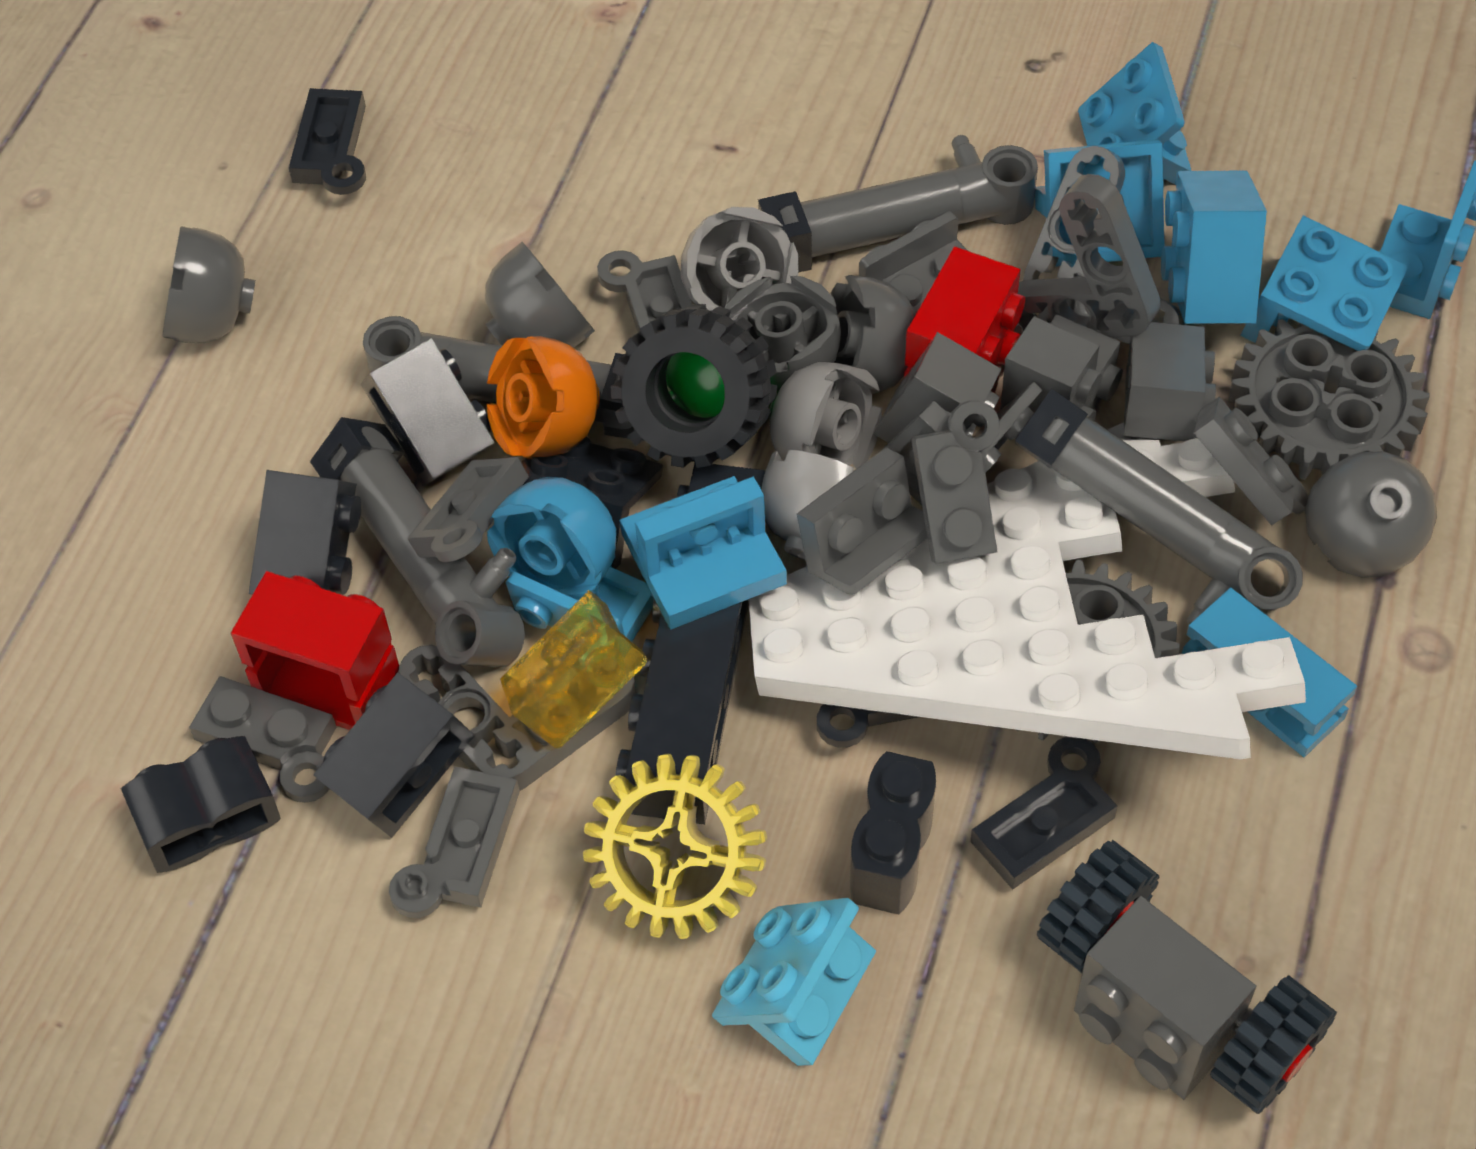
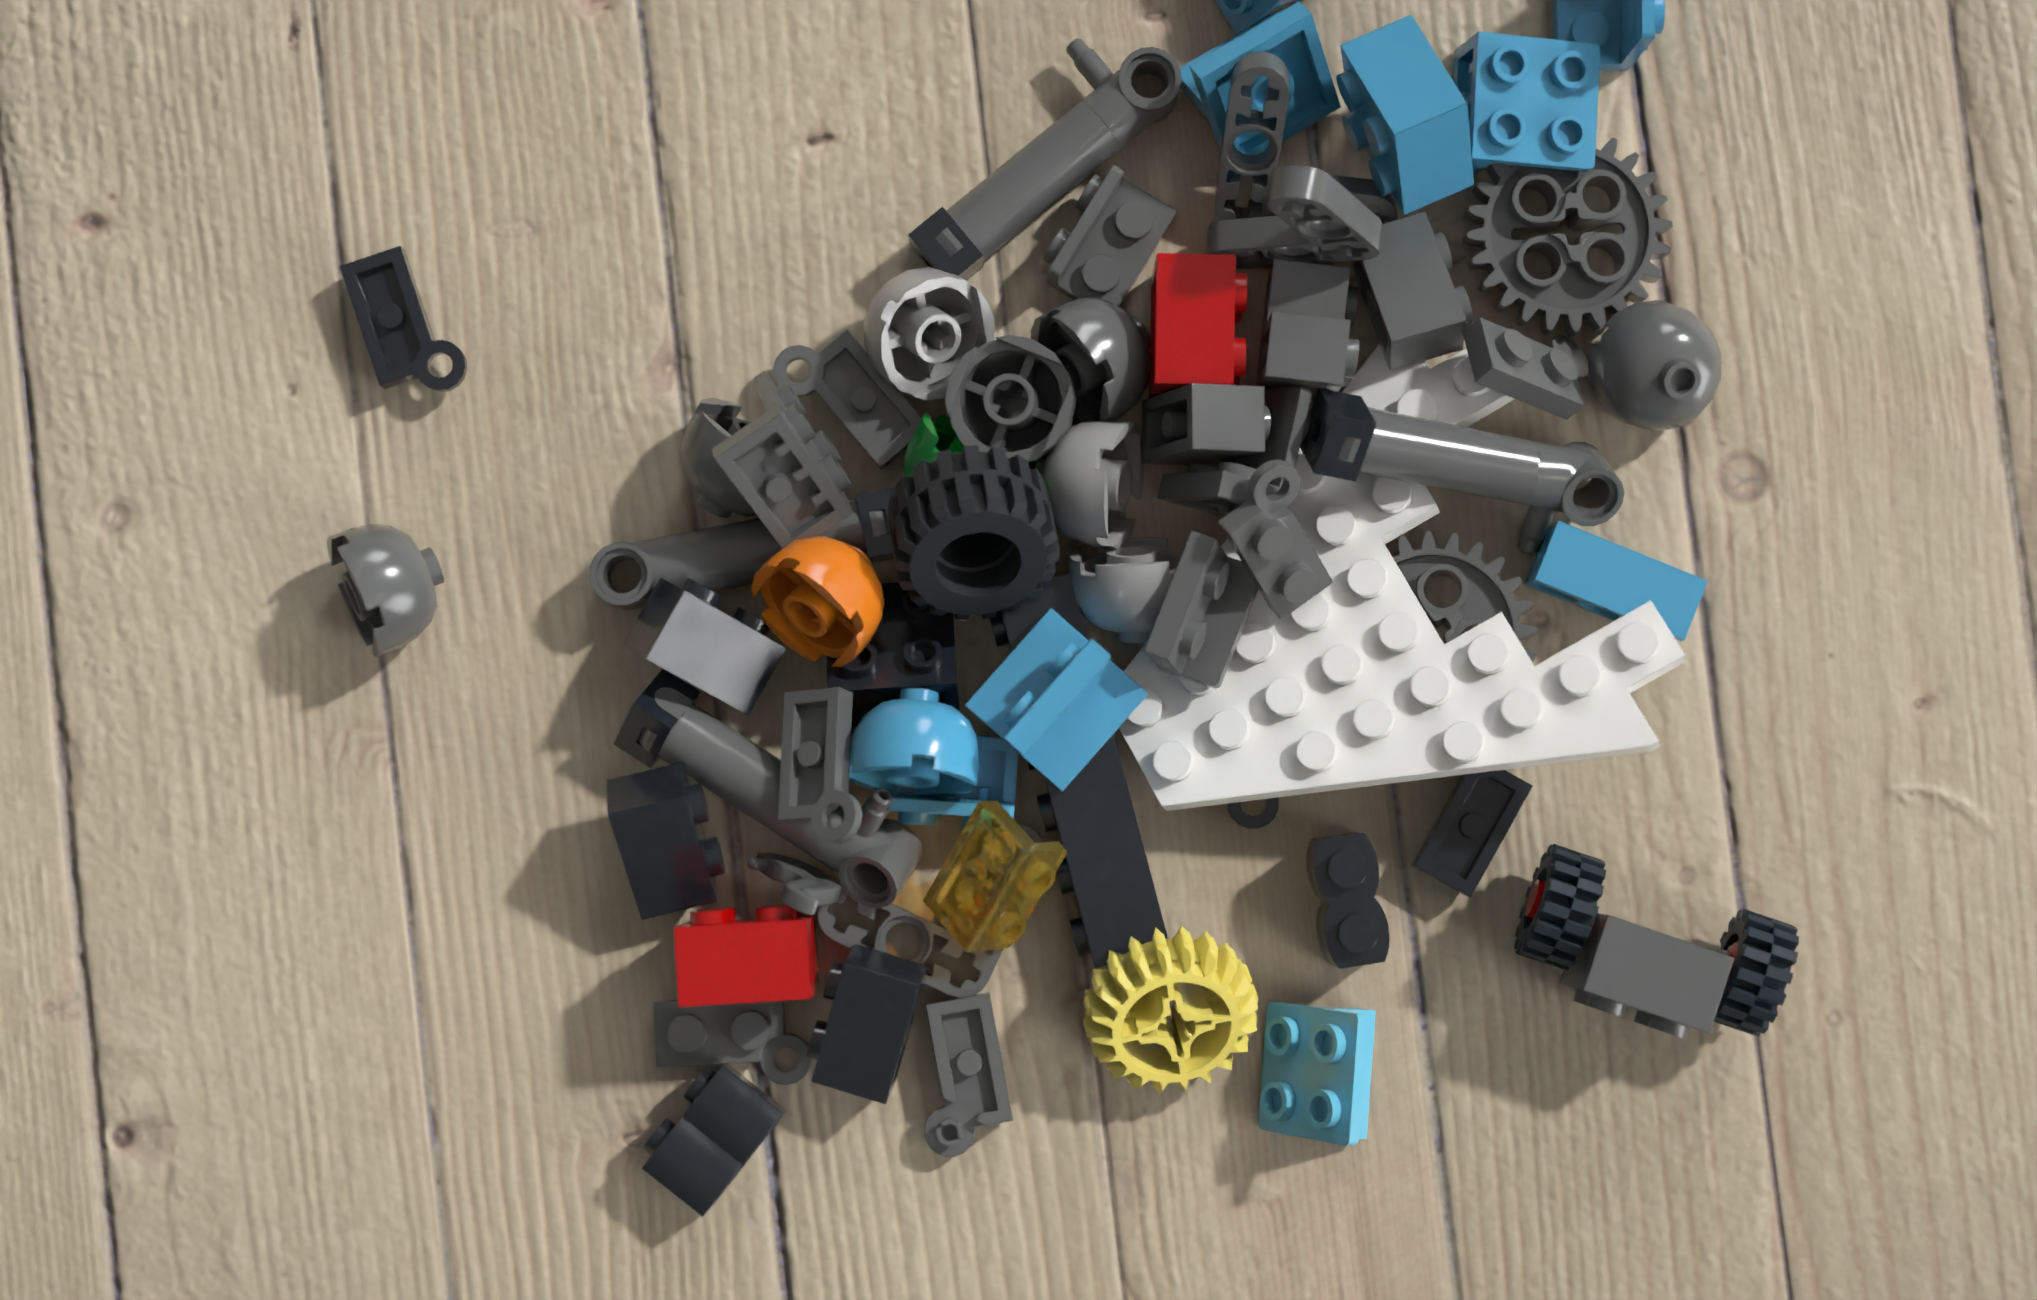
camera: 30 degrees left, 30 degrees up
(400, 614) = (804, 884): none -> dark grey piece
(560, 289) = (786, 468): none -> dark grey bracket

